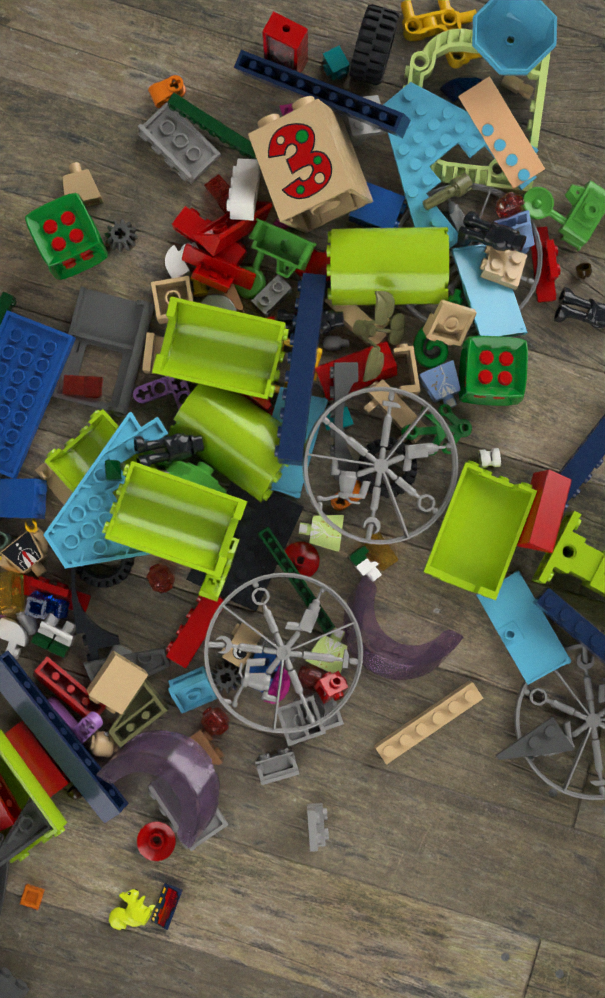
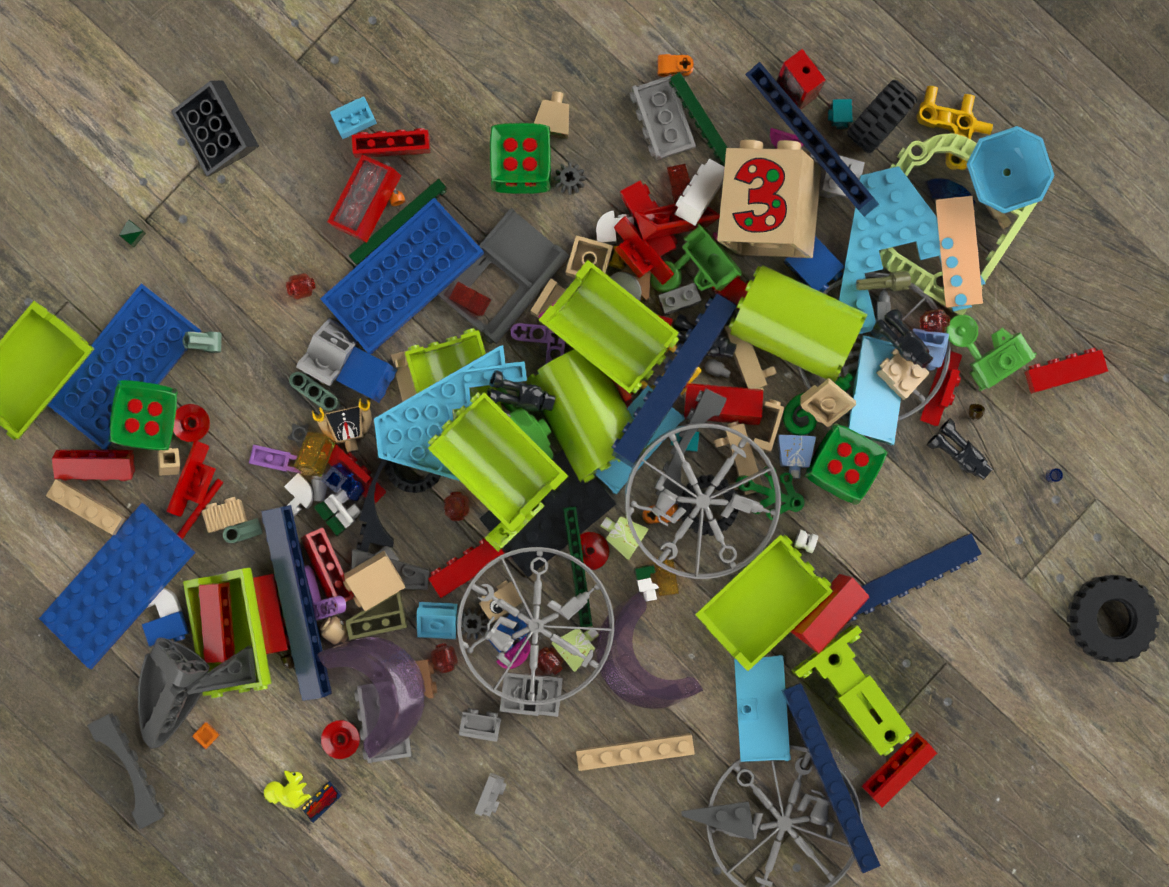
camera: 25 degrees right, 0 degrees up
(113, 470) = (462, 391): dark green slope -> none
(331, 687) = (563, 677): red brick -> none
(384, 309) = (772, 363): olive plant -> none

